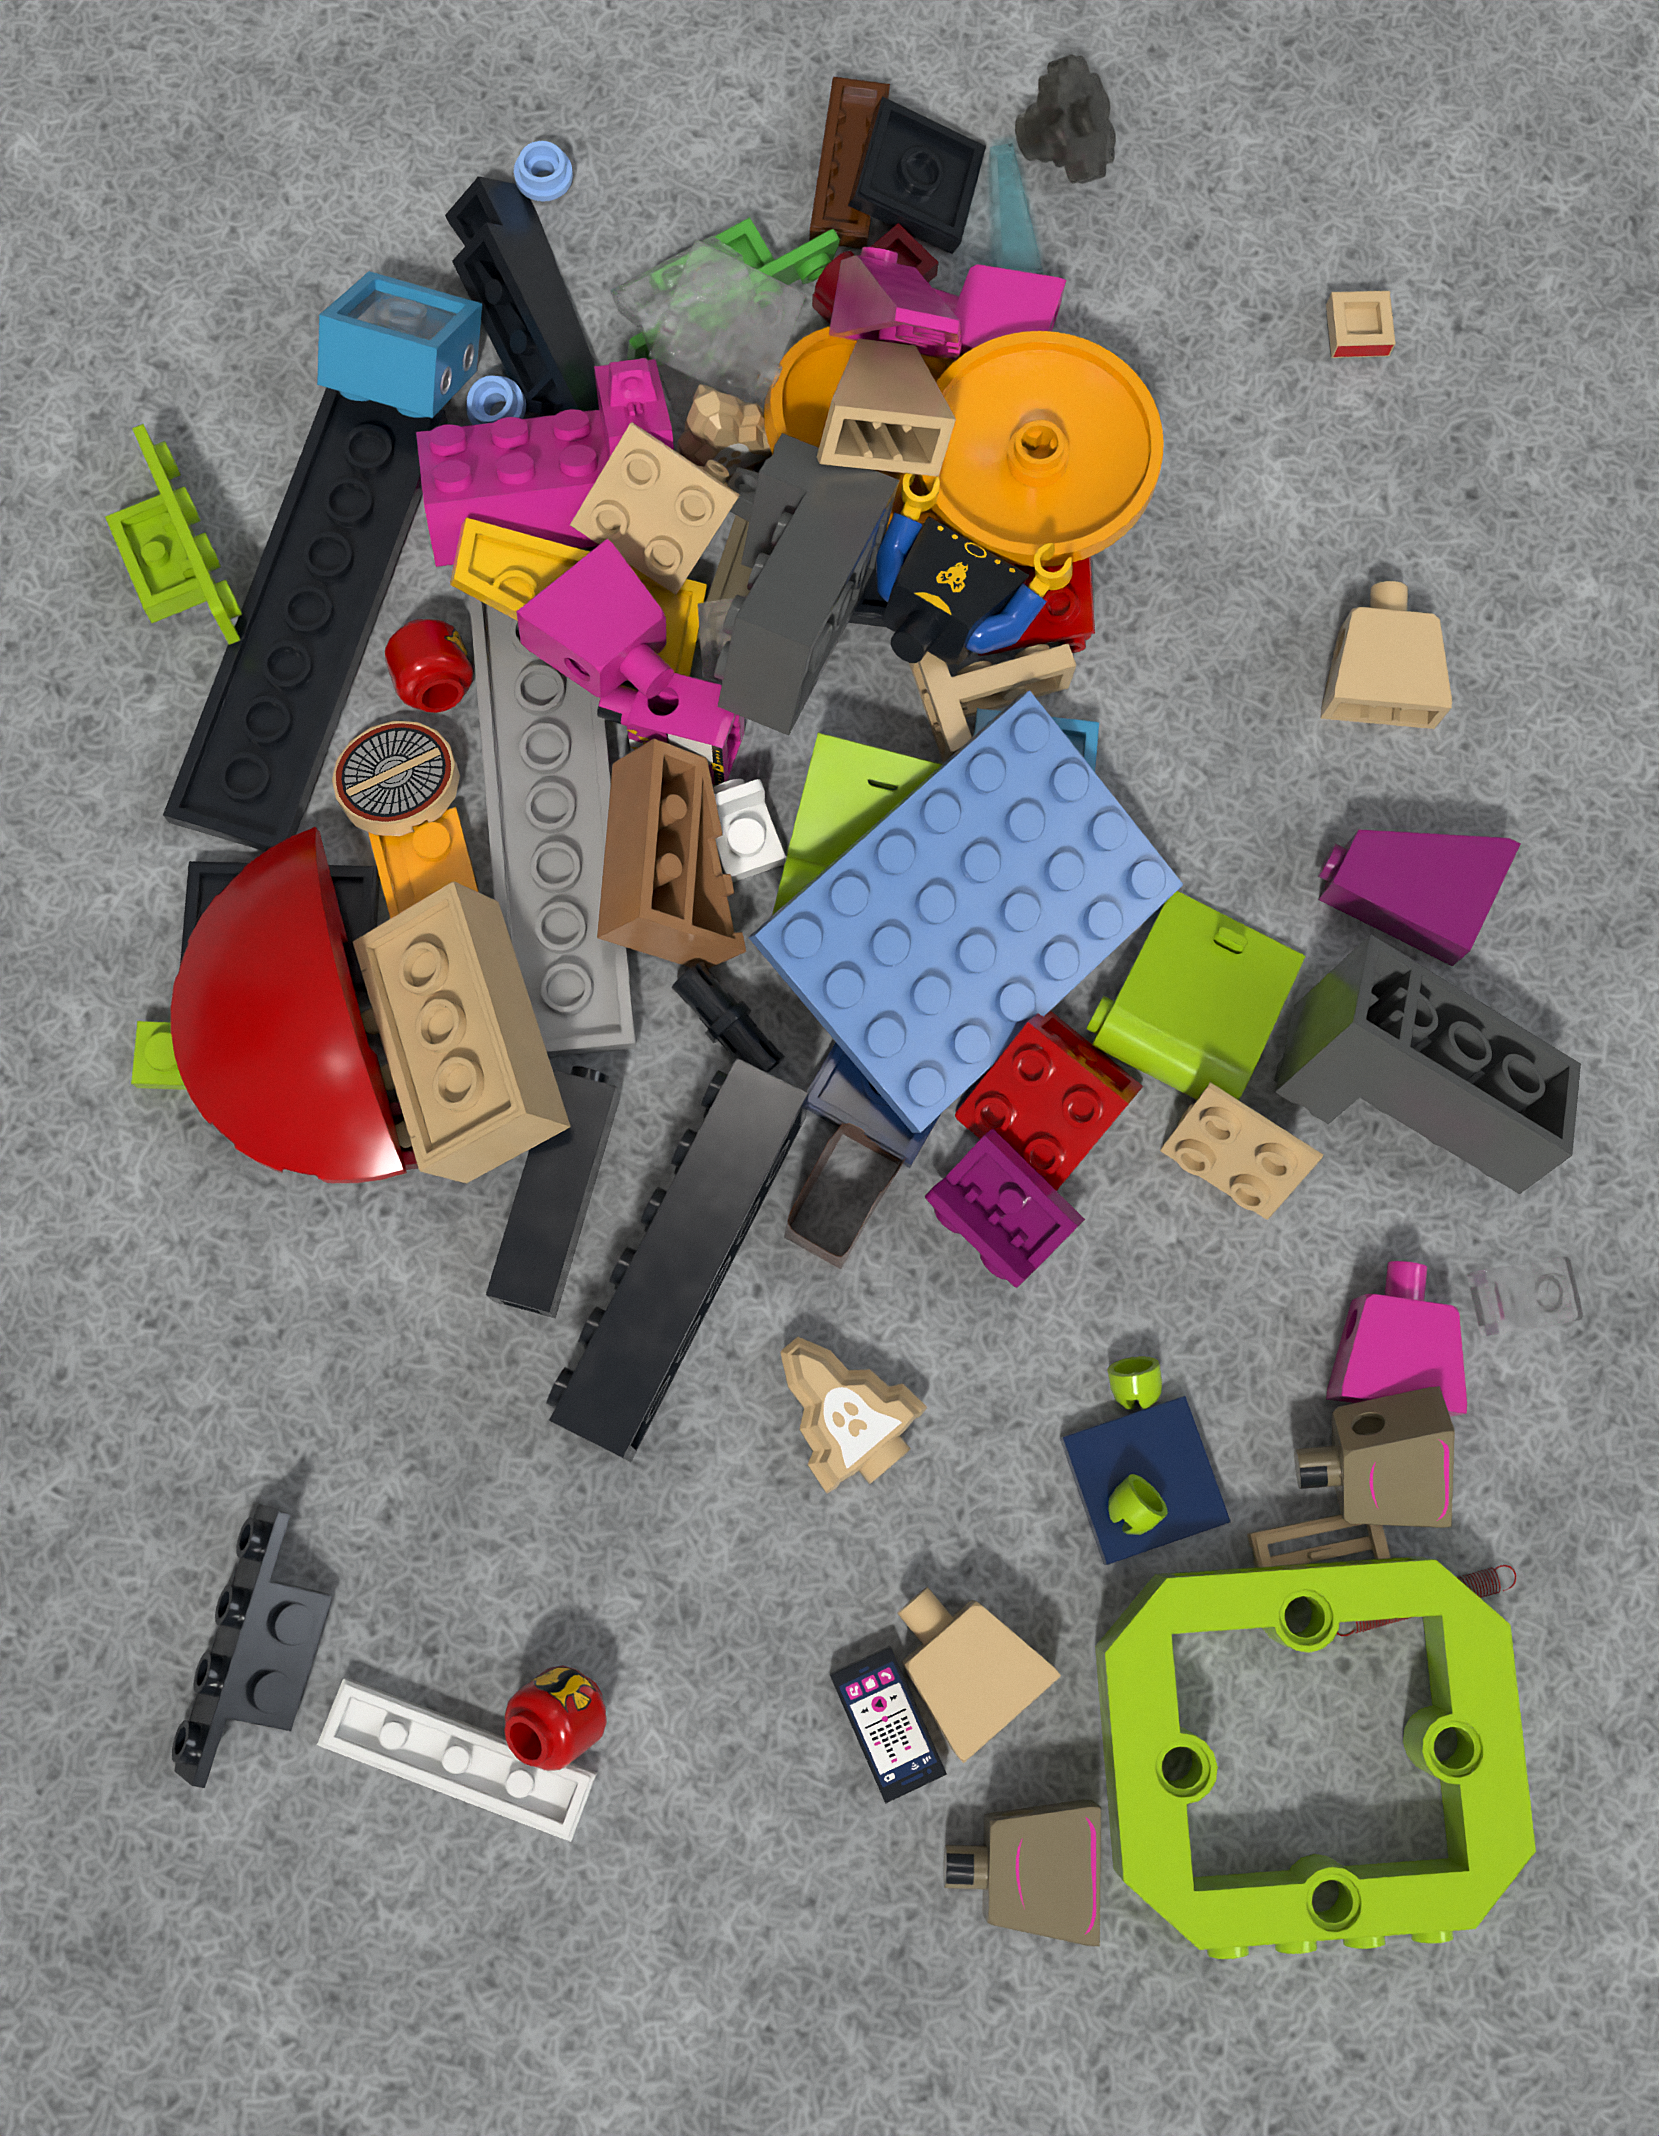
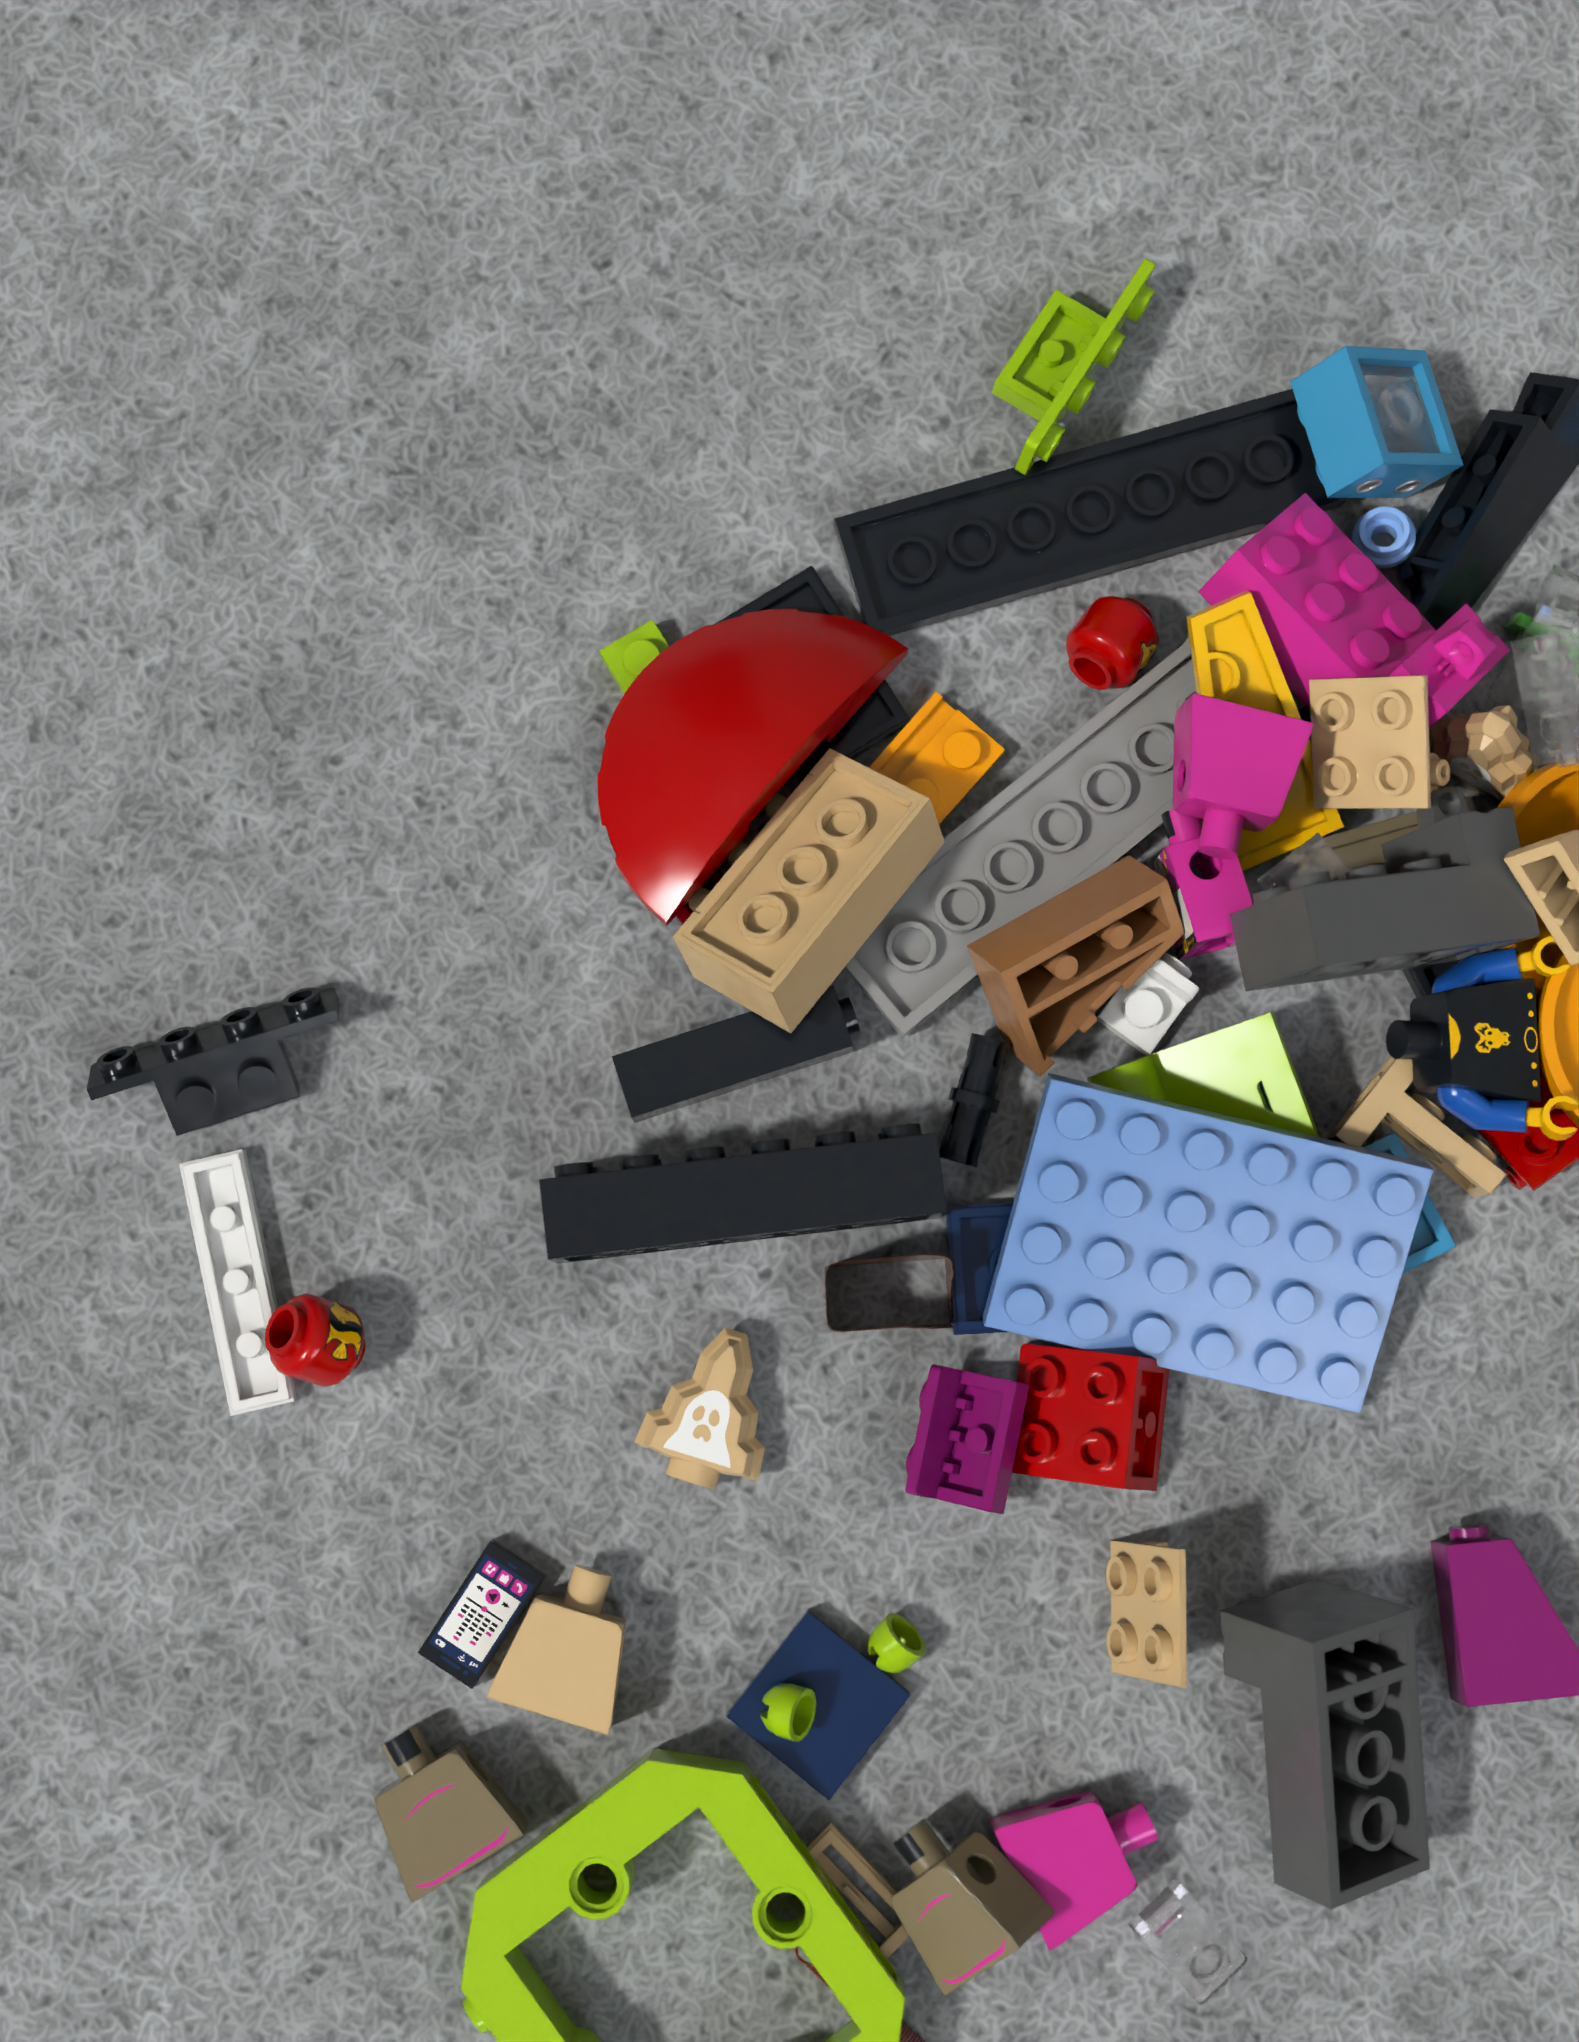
camera: 60 degrees right, 5 degrees up
(395, 778) = (996, 683): tile -> none
(1197, 1000) = (1264, 1492): lime door -> none

